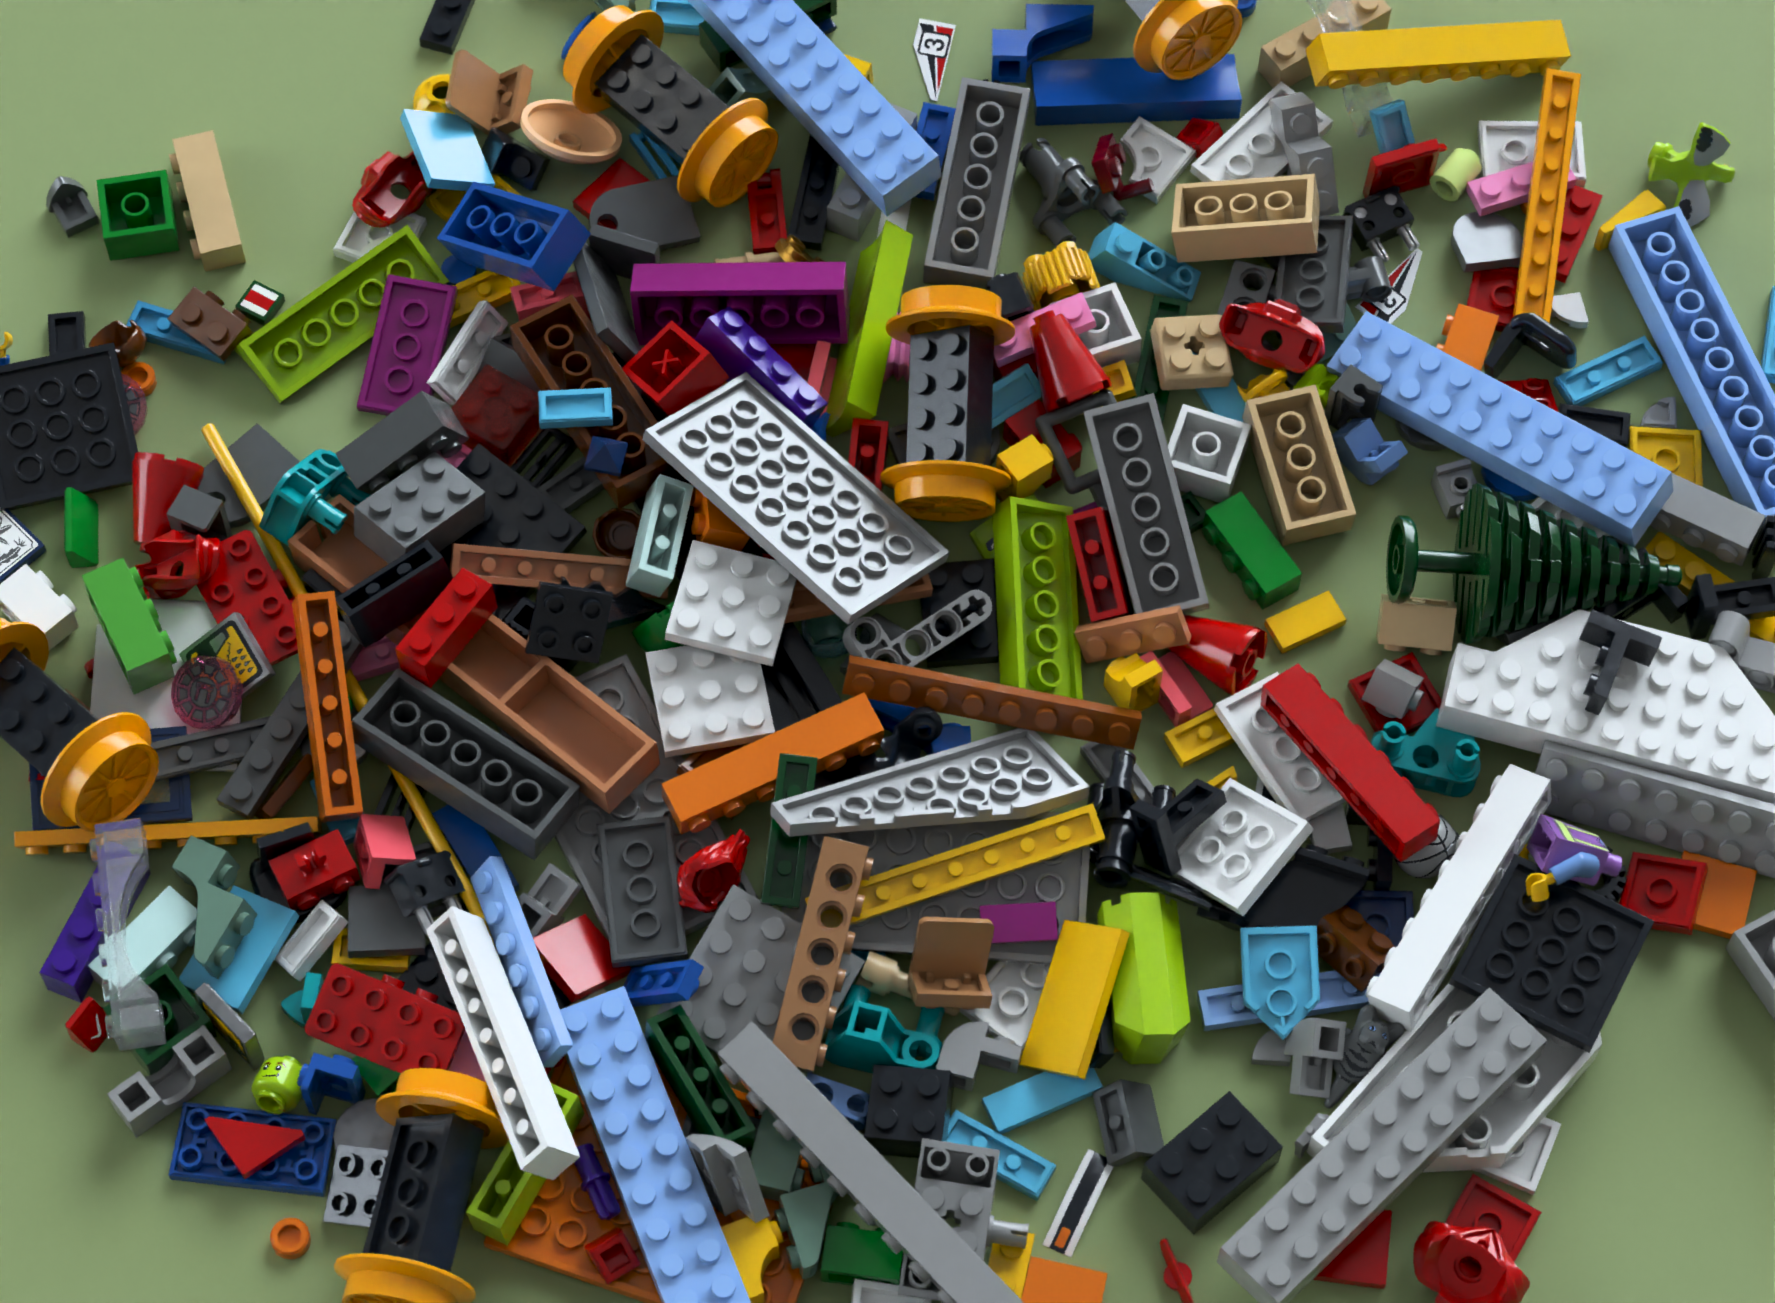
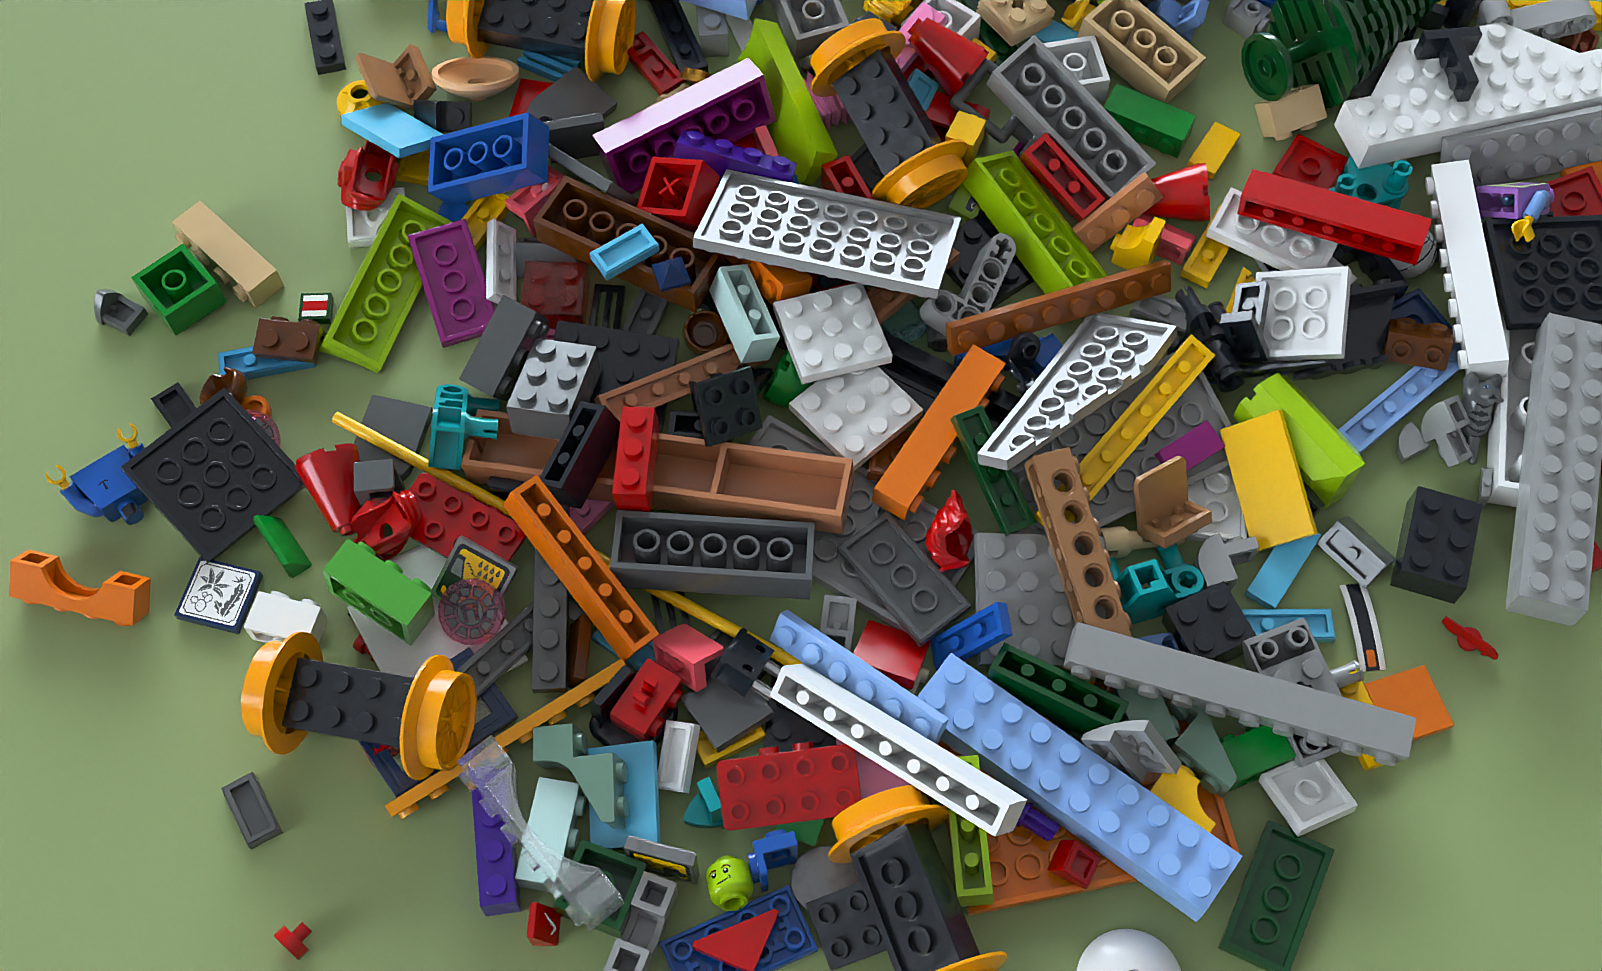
camera: 30 degrees left, 0 degrees up
(468, 841) = (745, 613): blue tile -> none
(1280, 974) = (1387, 387): medium azure tile -> none
(1393, 690) = (1314, 159): light grey brick -> none

